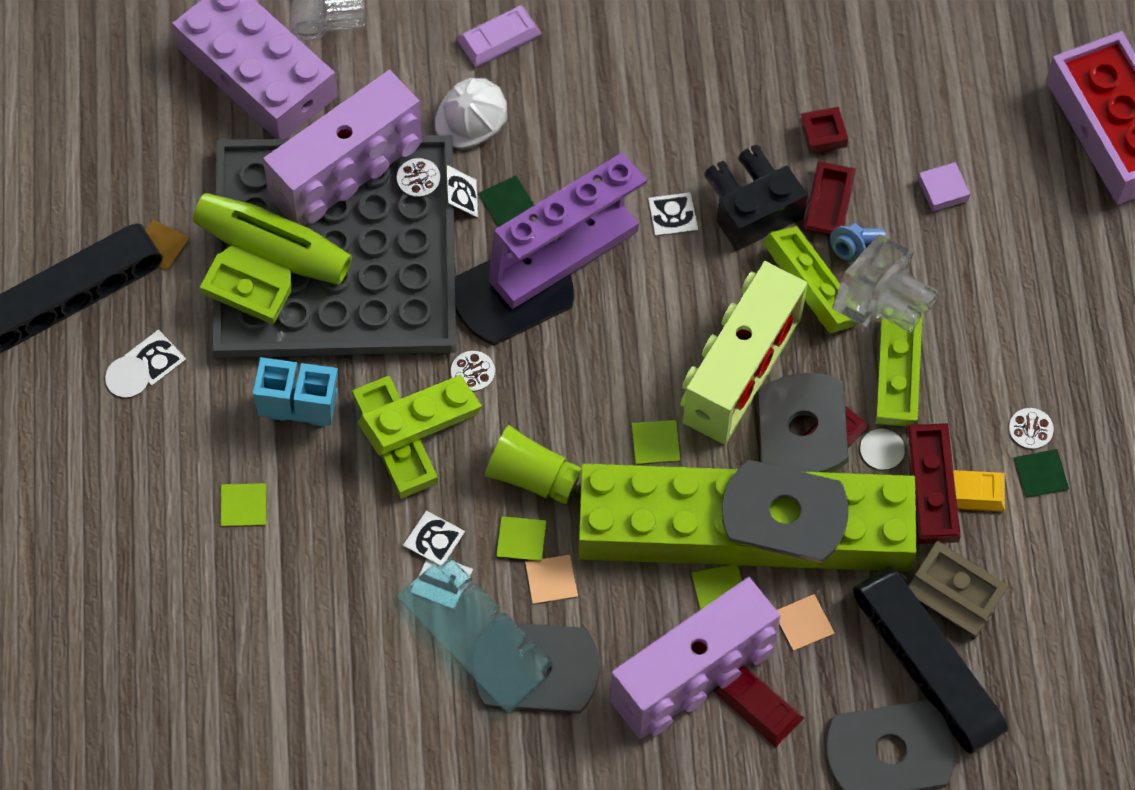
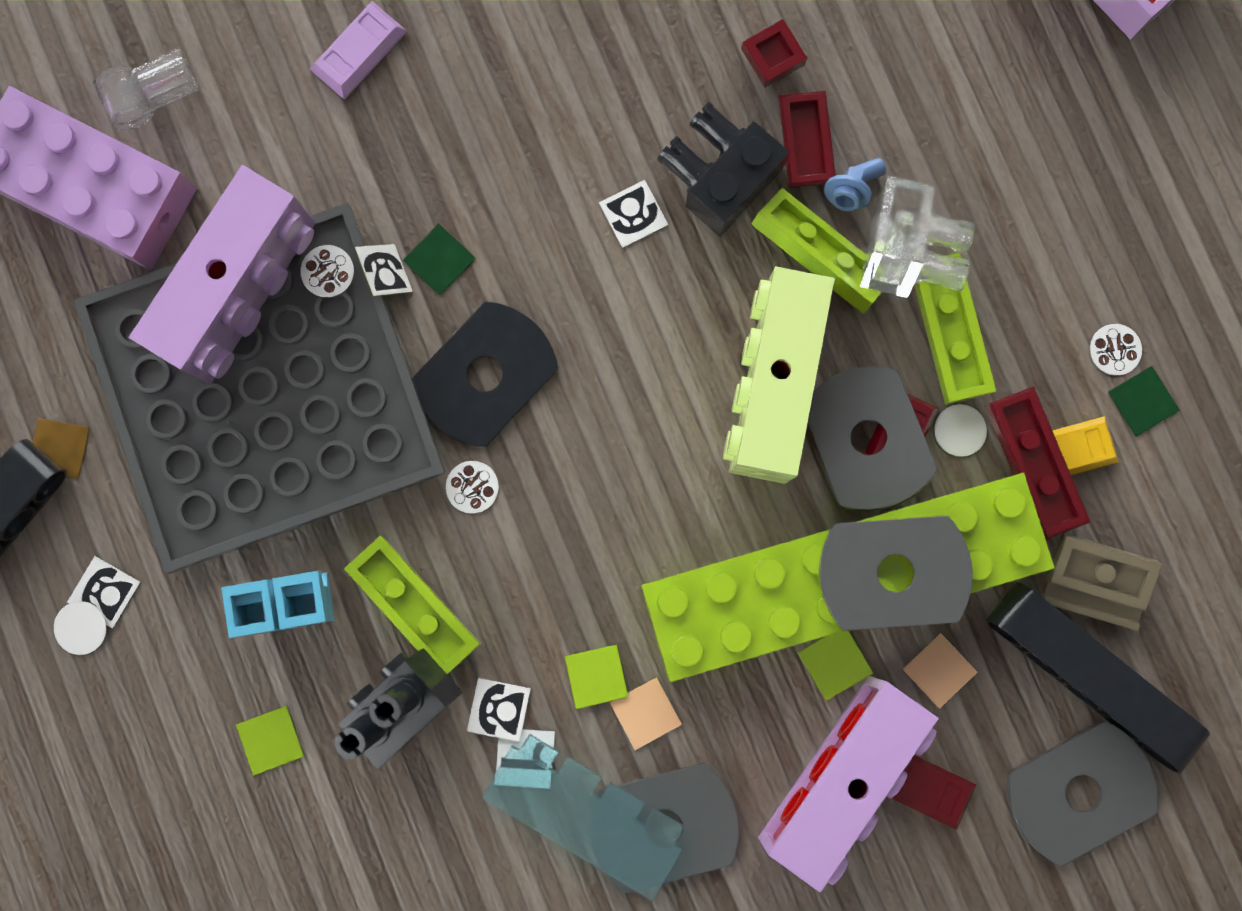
camera: 20 degrees left, 20 degrees up
(262, 255) = (180, 441): lime plate -> none
(358, 499) = (396, 710): none -> black brick
(419, 414) = (431, 577): lime plate -> none
(471, 112) = (360, 164): white piece -> none
(532, 467) = (583, 595): lime plant -> none
(568, 231) = (525, 292): medium lavender window -> none
(656, 441) = (706, 506): lime sticker -> none
(944, 187) = (930, 80): lavender tile -> none

